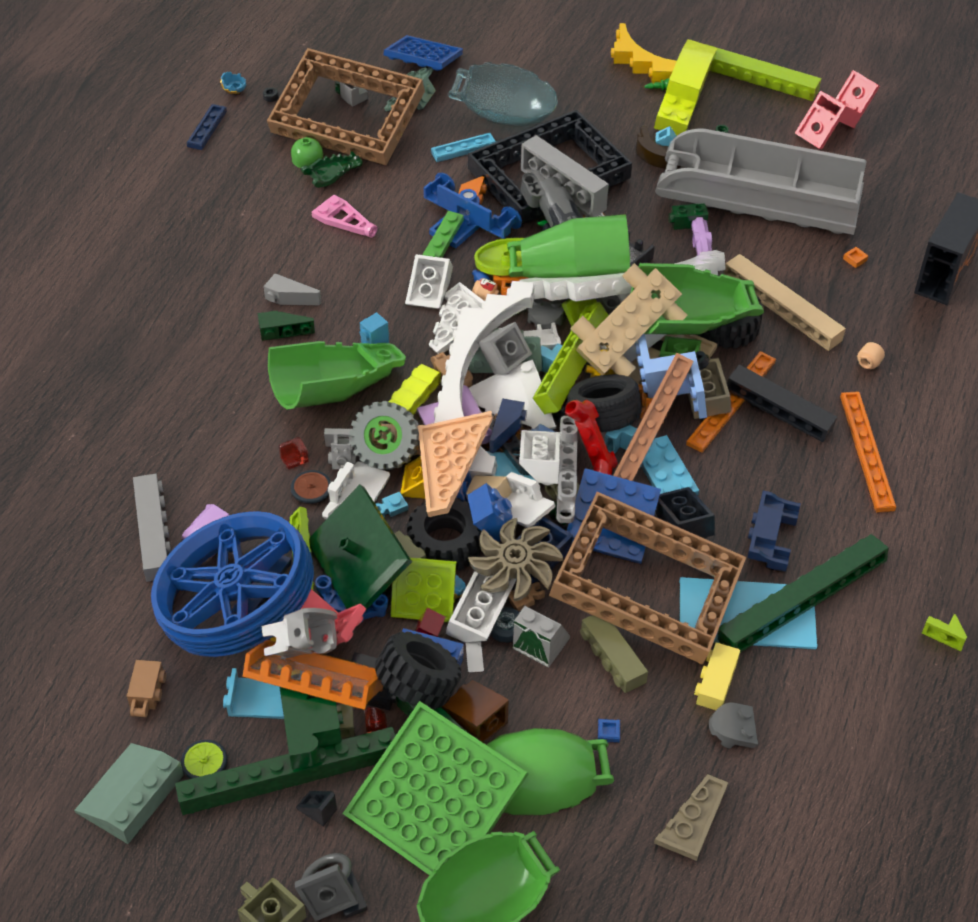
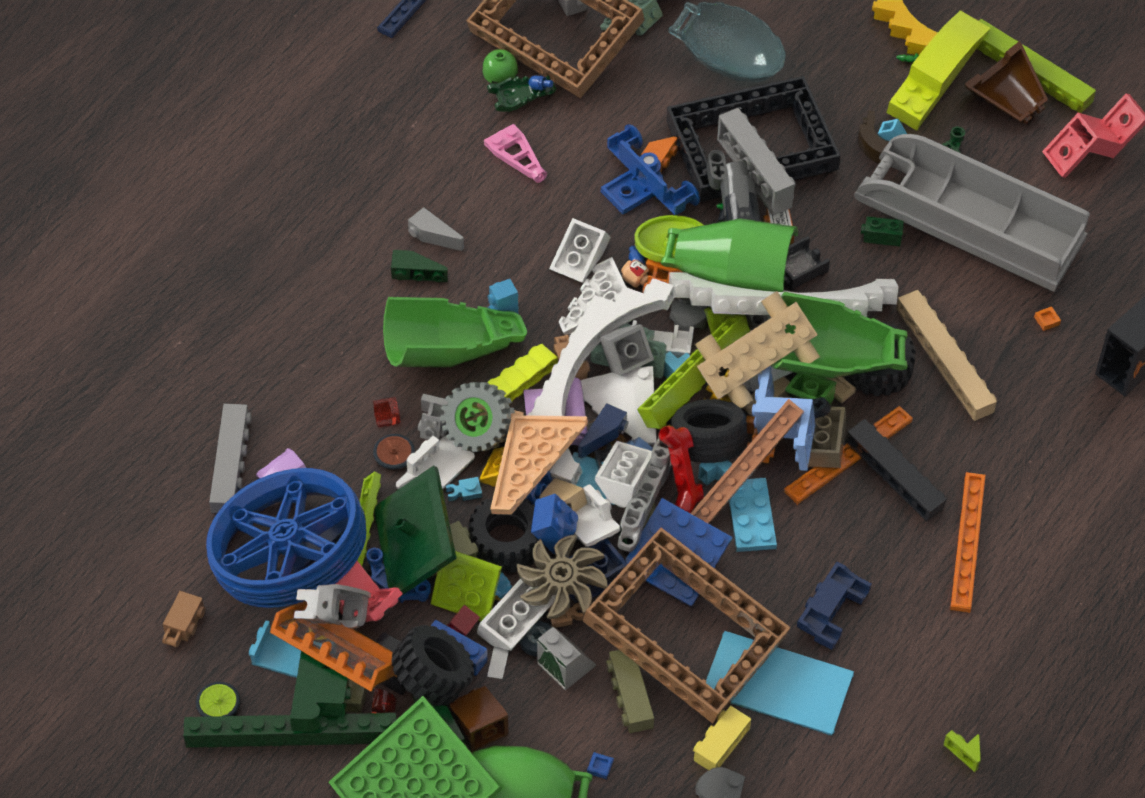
camera: 15 degrees right, 5 degrees up
(131, 791) = (145, 714): sand green slope -> none
(318, 806) = (309, 770): black slope -> none
(347, 157) = (539, 83): none -> blue cylinder
(444, 235) = (611, 200): bright green plate -> none
(461, 147) = (670, 93): medium azure tile -> none
(686, 511) = (750, 567): black brick -> none
(701, 237) = (887, 258): lavender piece -> none
(752, 86) = (1011, 86): none -> reddish brown cone
(803, 593) = (838, 677): dark green brick -> none
(871, 355) = (1013, 438): light nougat head -> none

